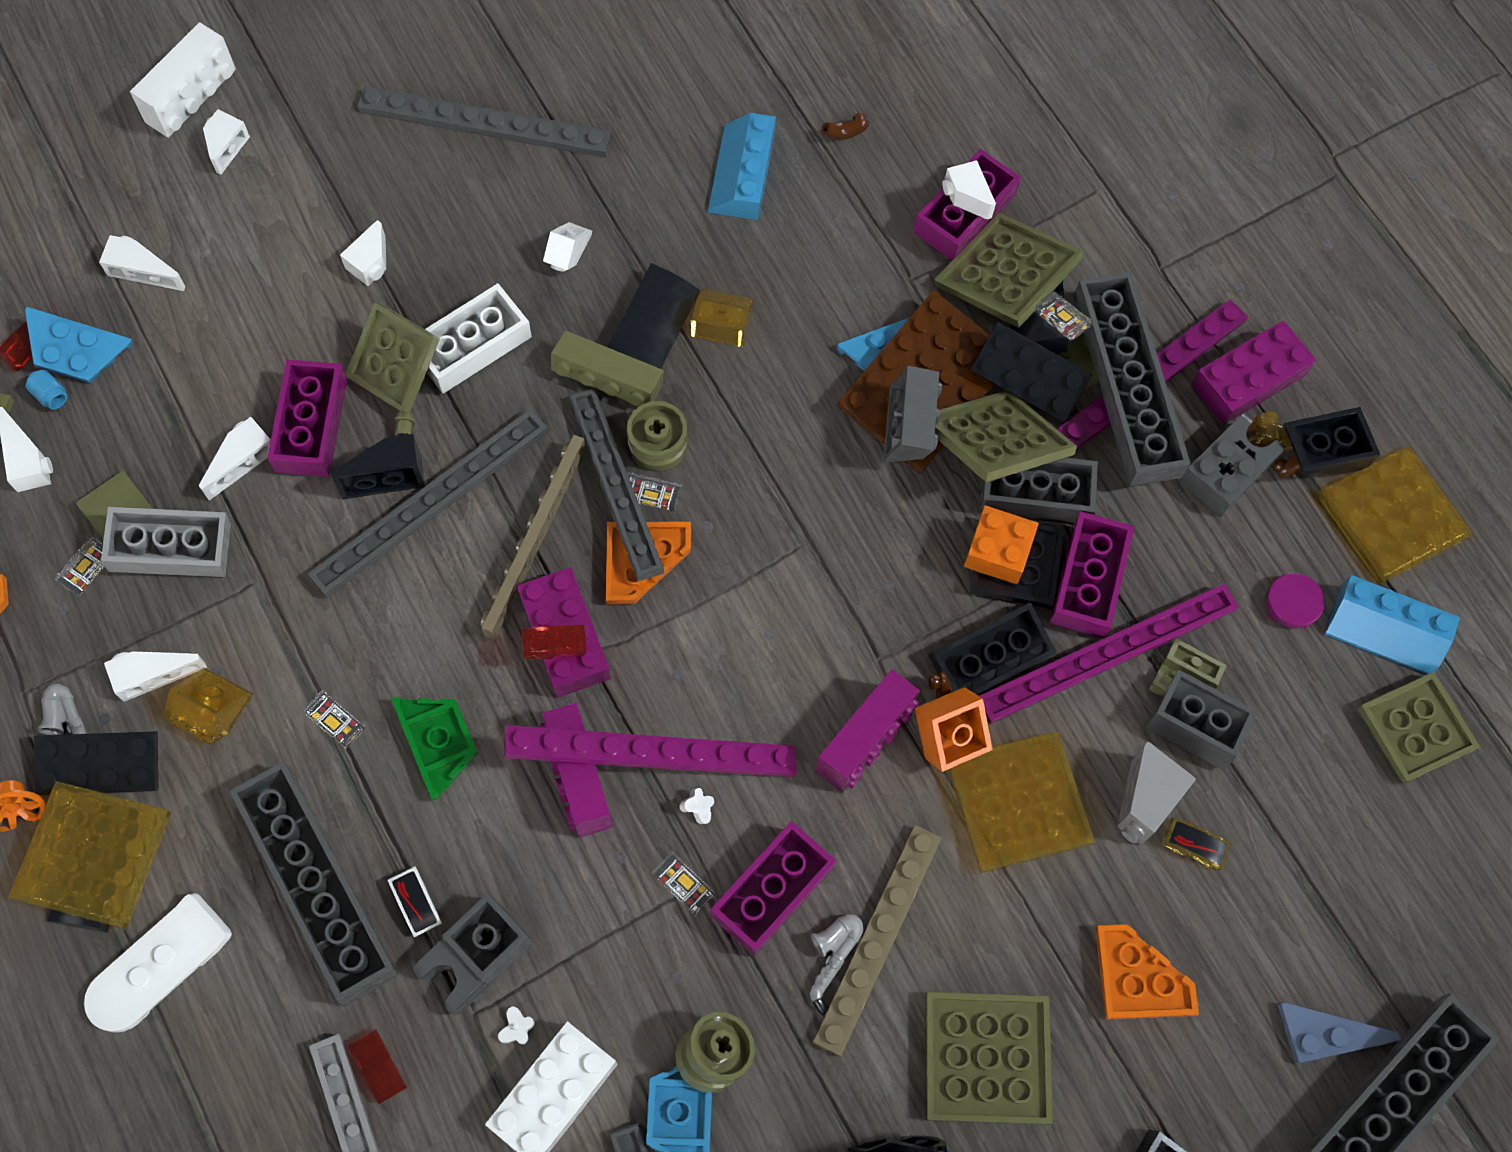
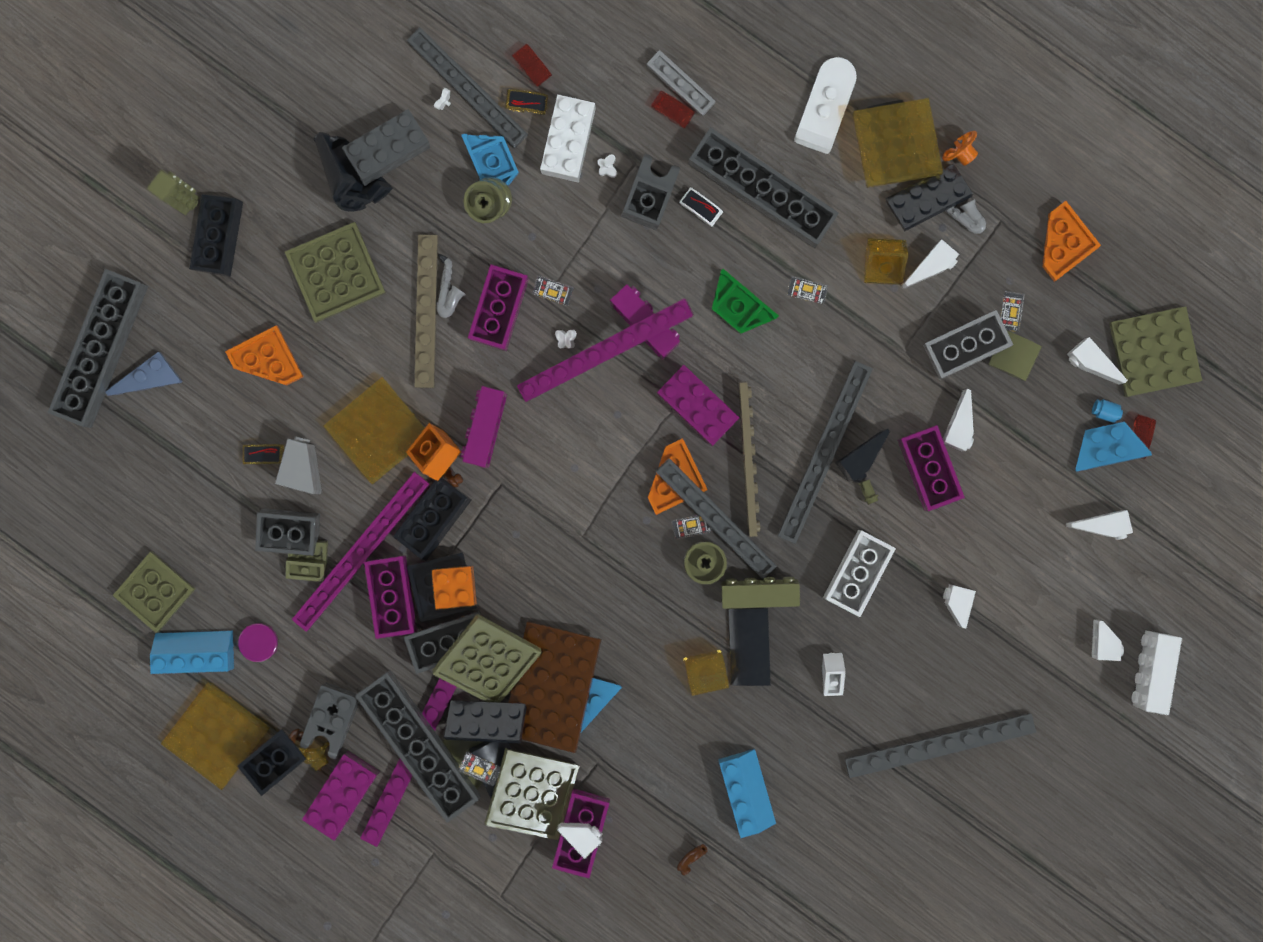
camera: 160 degrees right, 20 degrees up
(392, 357) = (899, 532): olive plate -> none
(553, 641) = (696, 389): clear red slope -> none
(912, 415) = (546, 645): dark grey slope -> none

